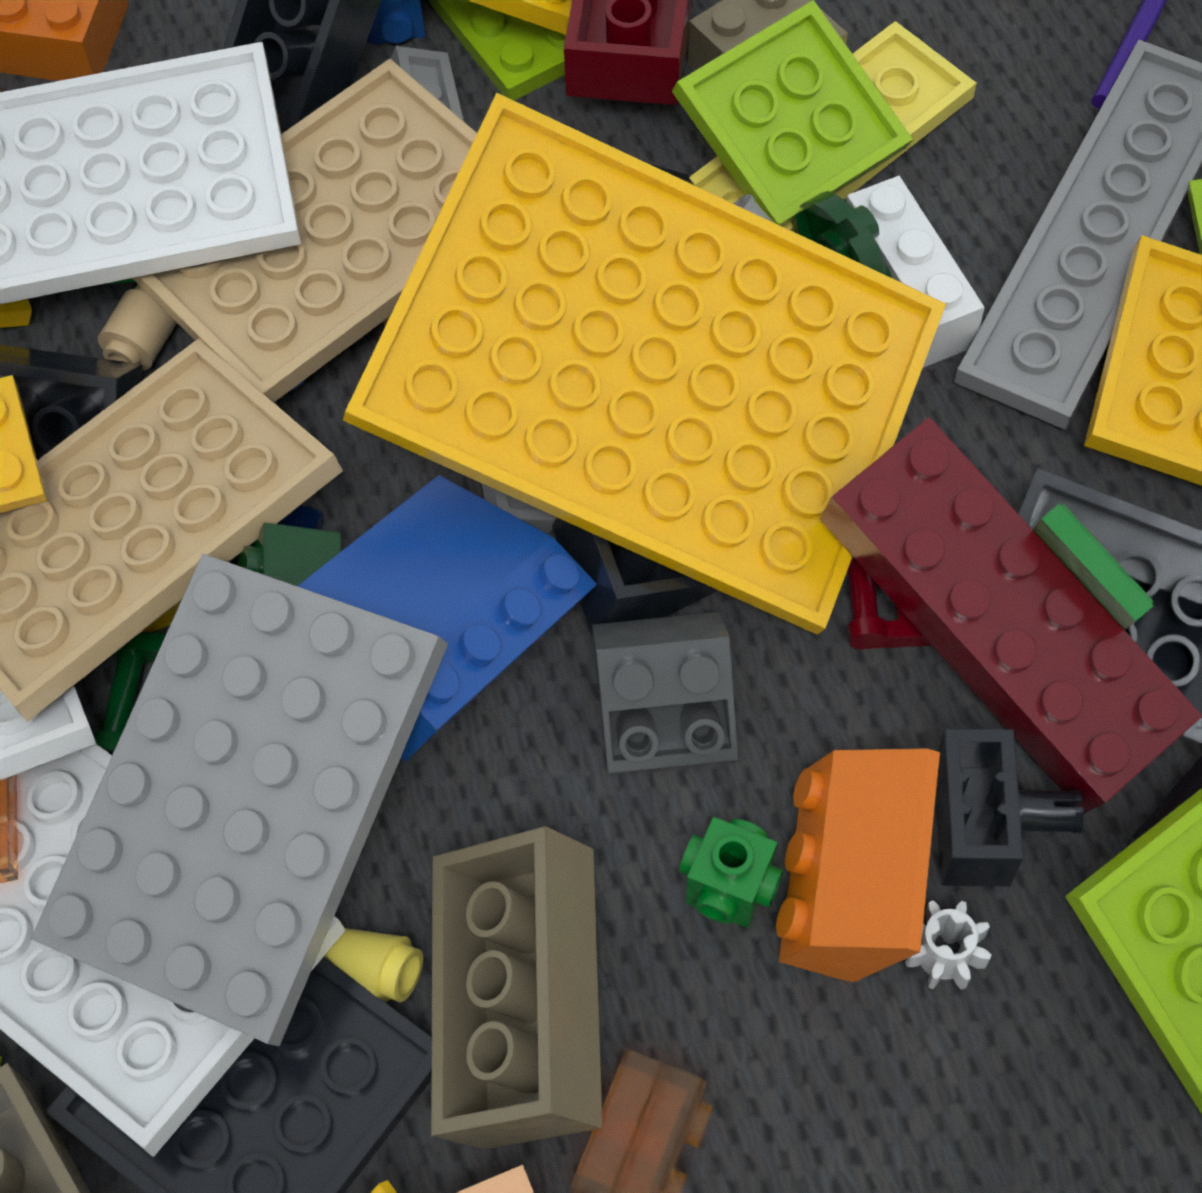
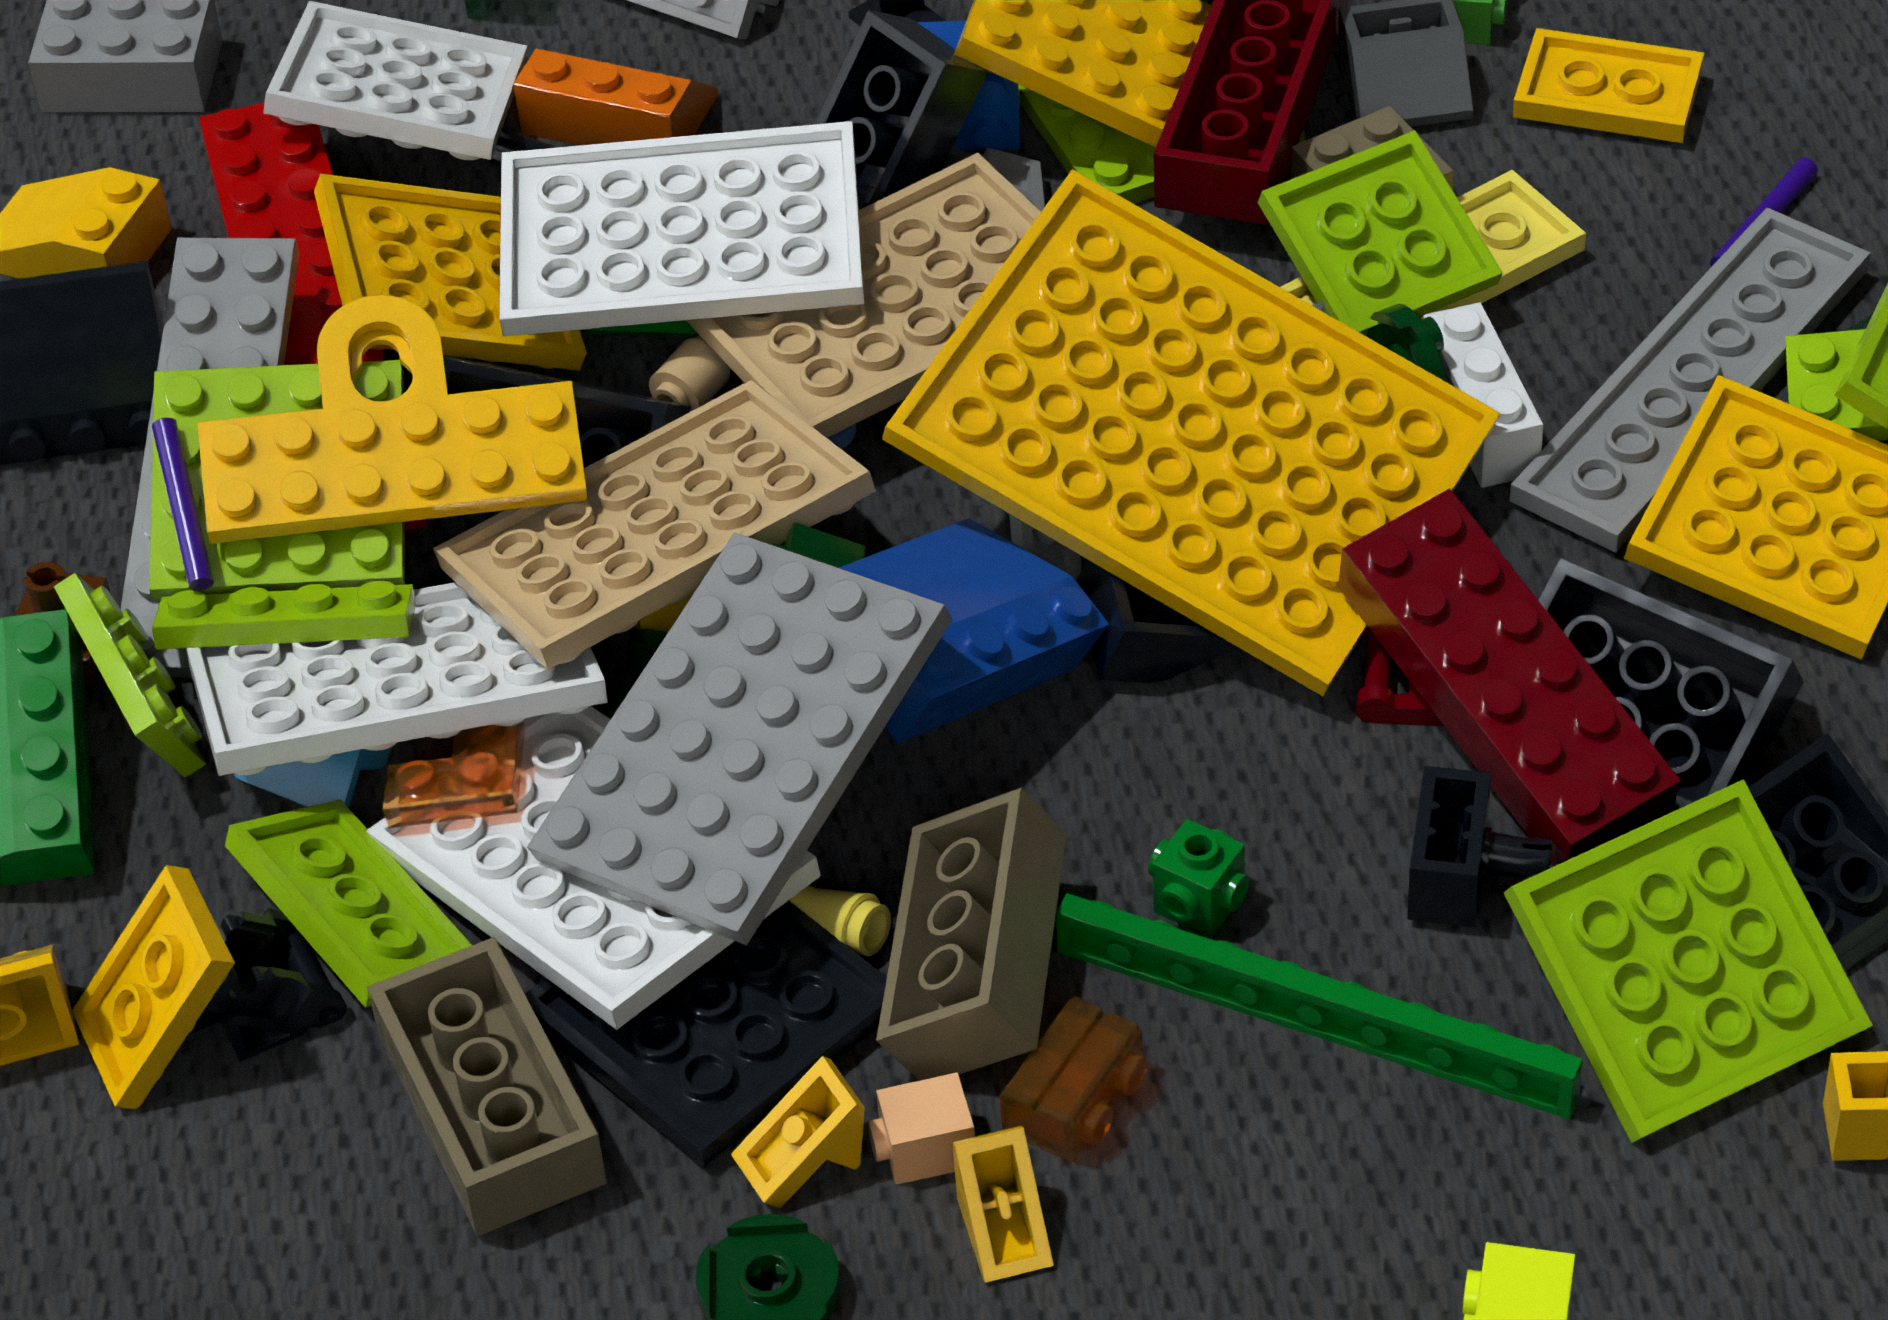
camera: 10 degrees right, 15 degrees down
(665, 692) = (1162, 731): dark grey slope -> none
(859, 861) = (1319, 865): orange slope -> none
(898, 1017) = (1320, 1005): none -> green plate
(954, 927) = (1399, 958): white gear -> none
(1093, 566) = (1588, 632): green tile -> none

